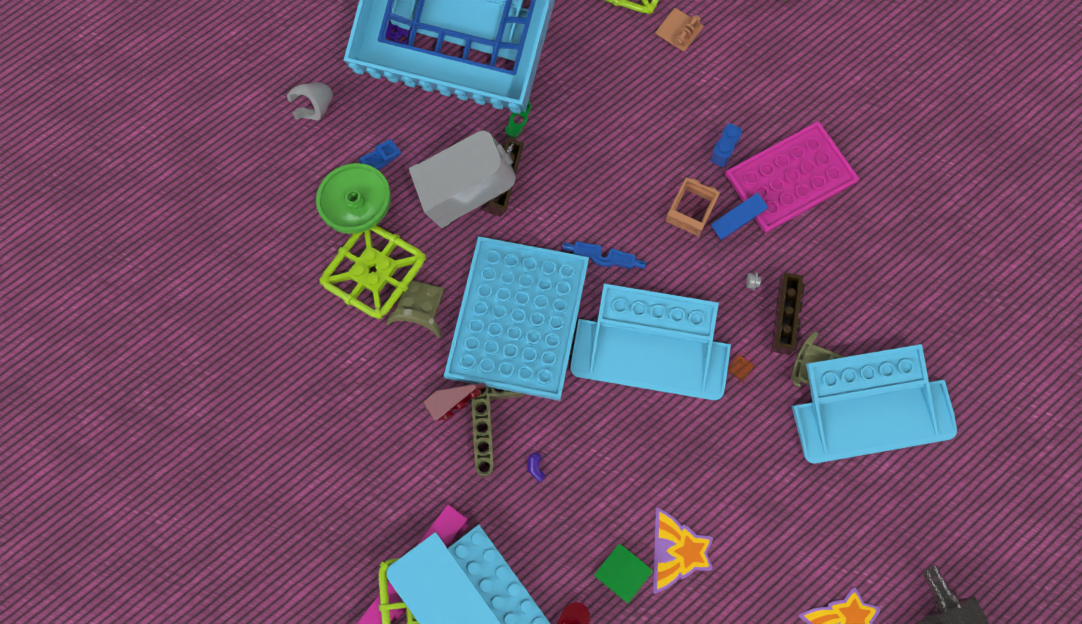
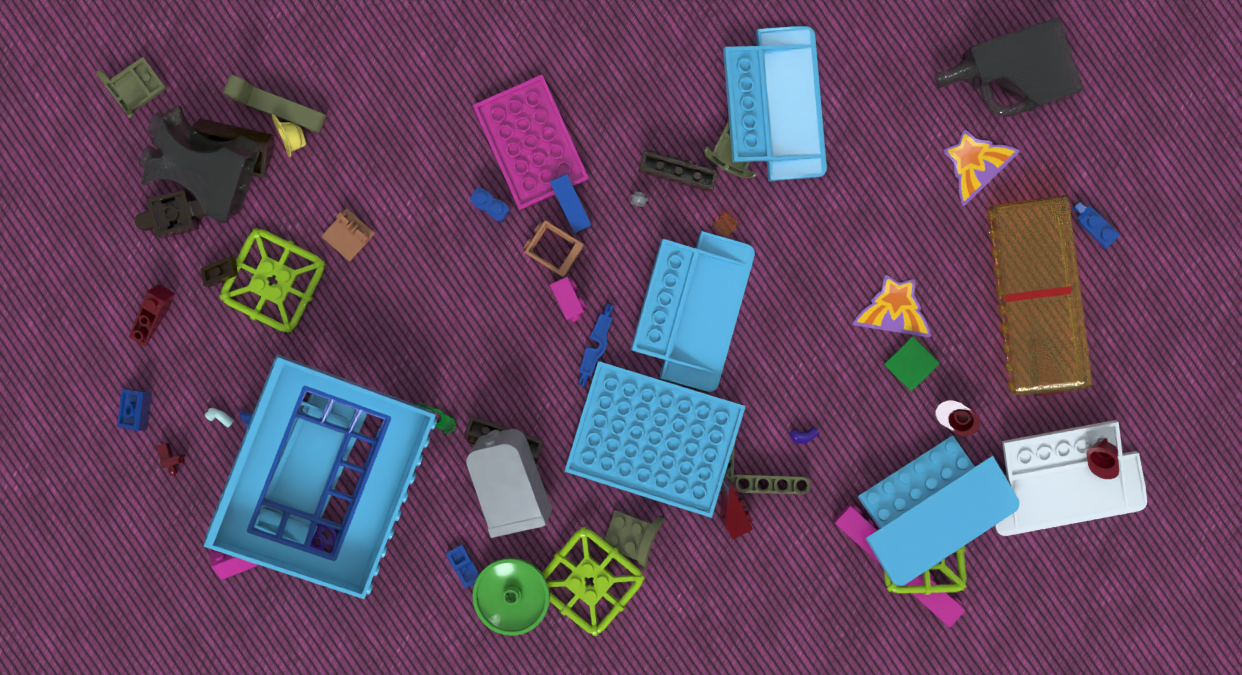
camera: 80 degrees left, 15 degrees up
(320, 96) = (389, 630): light grey piece -> none
(646, 221) = (567, 299): none -> dark pink brick

